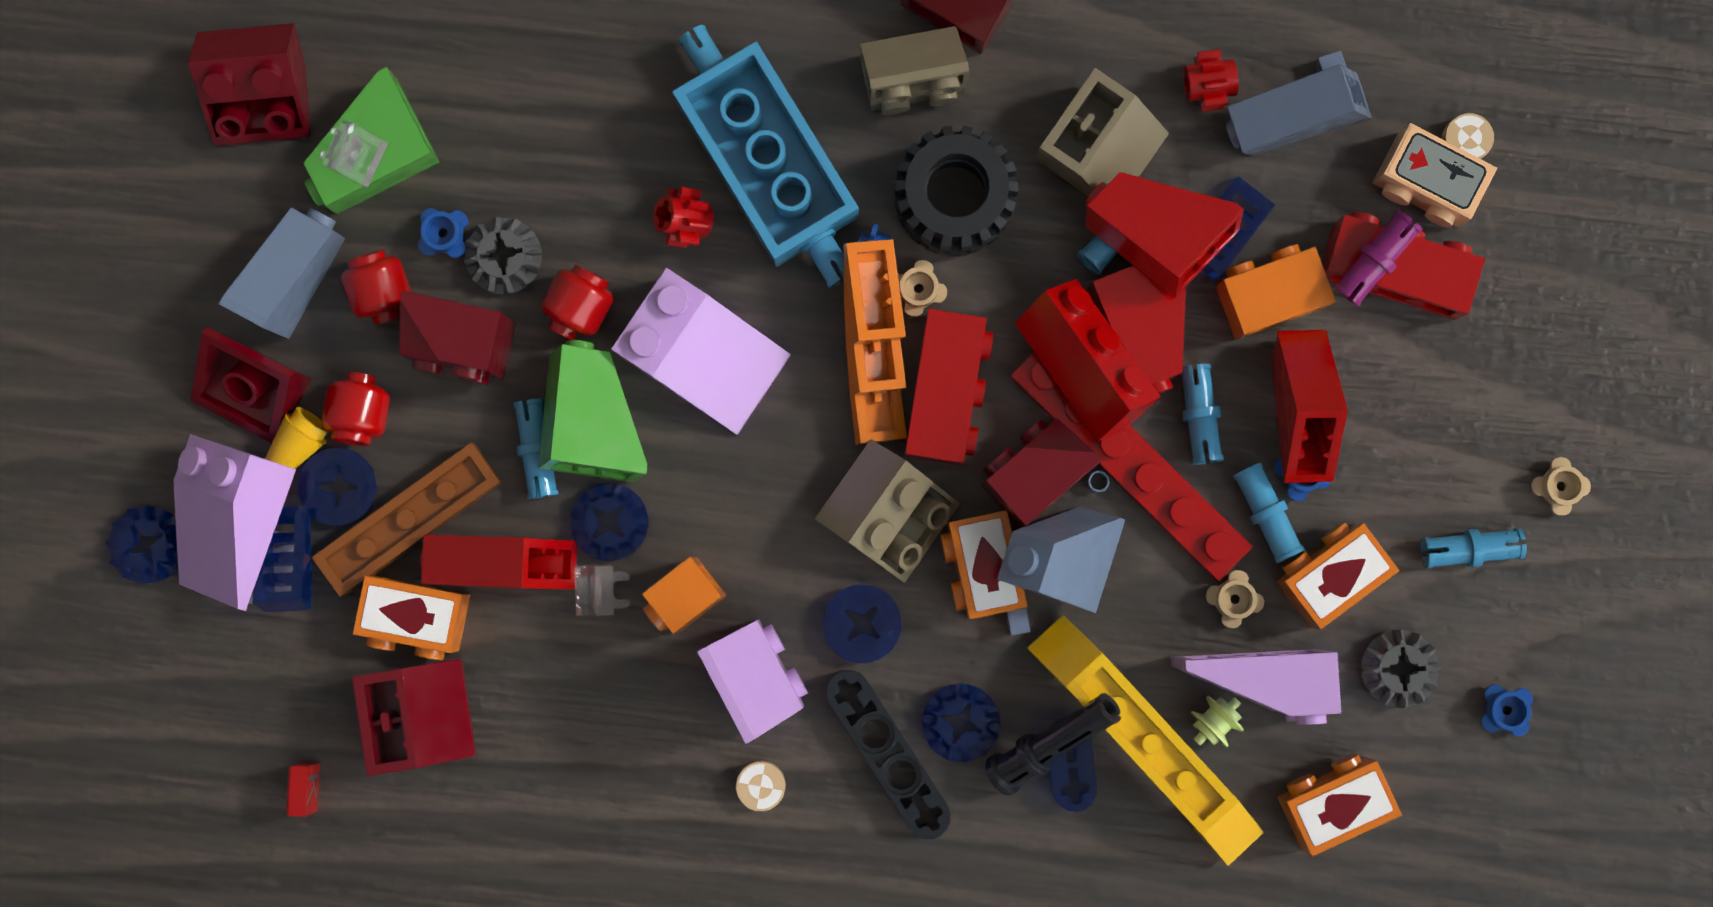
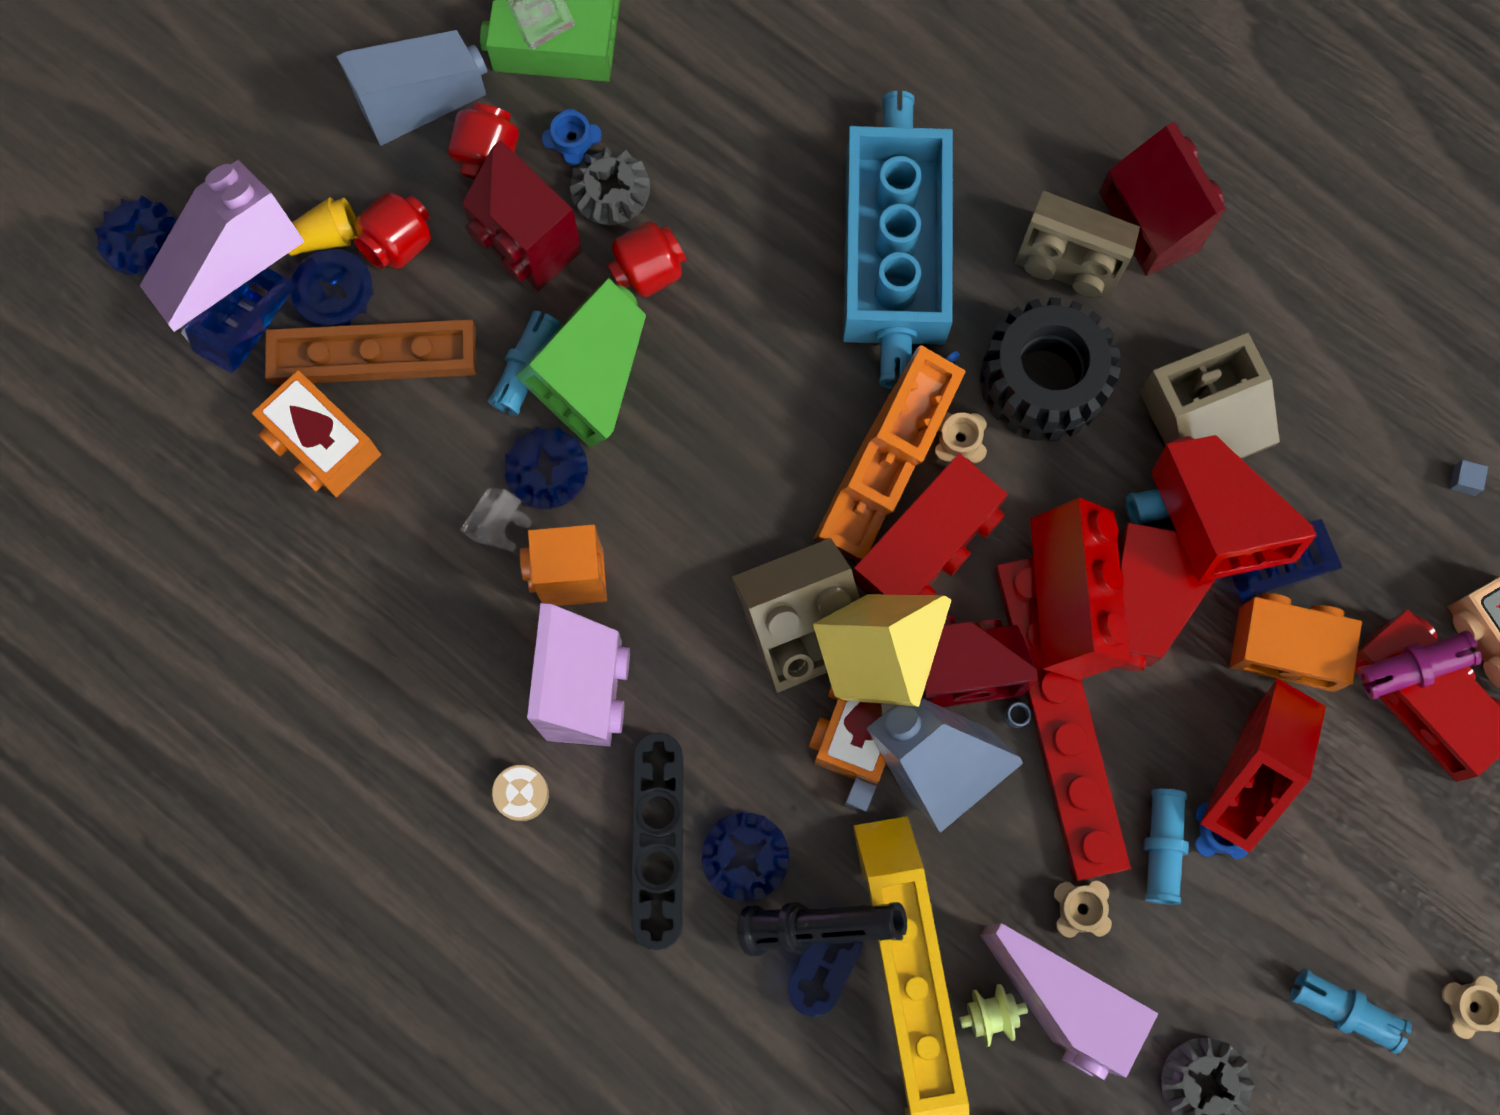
camera: 35 degrees right, 10 degrees down
(245, 384) = (315, 151): dark red slope -> none
(303, 789) = (113, 524): red tile -> none
(414, 717) = (253, 521): dark red slope -> none
(498, 562) = (425, 436): red slope -> none
(683, 217) = (789, 245): red gear -> none
(701, 351) = (727, 368): lavender slope -> none
(863, 647) = (727, 682): clear blue gear -> none
(969, 507) = (882, 647): none -> light yellow slope
(1201, 414) = (1156, 713): dark azure pin -> none
(1210, 80) = (1348, 417): red gear -> none
(1298, 111) = (1417, 492): sand blue slope -> none
(1336, 574) = (1198, 948): brick -> none

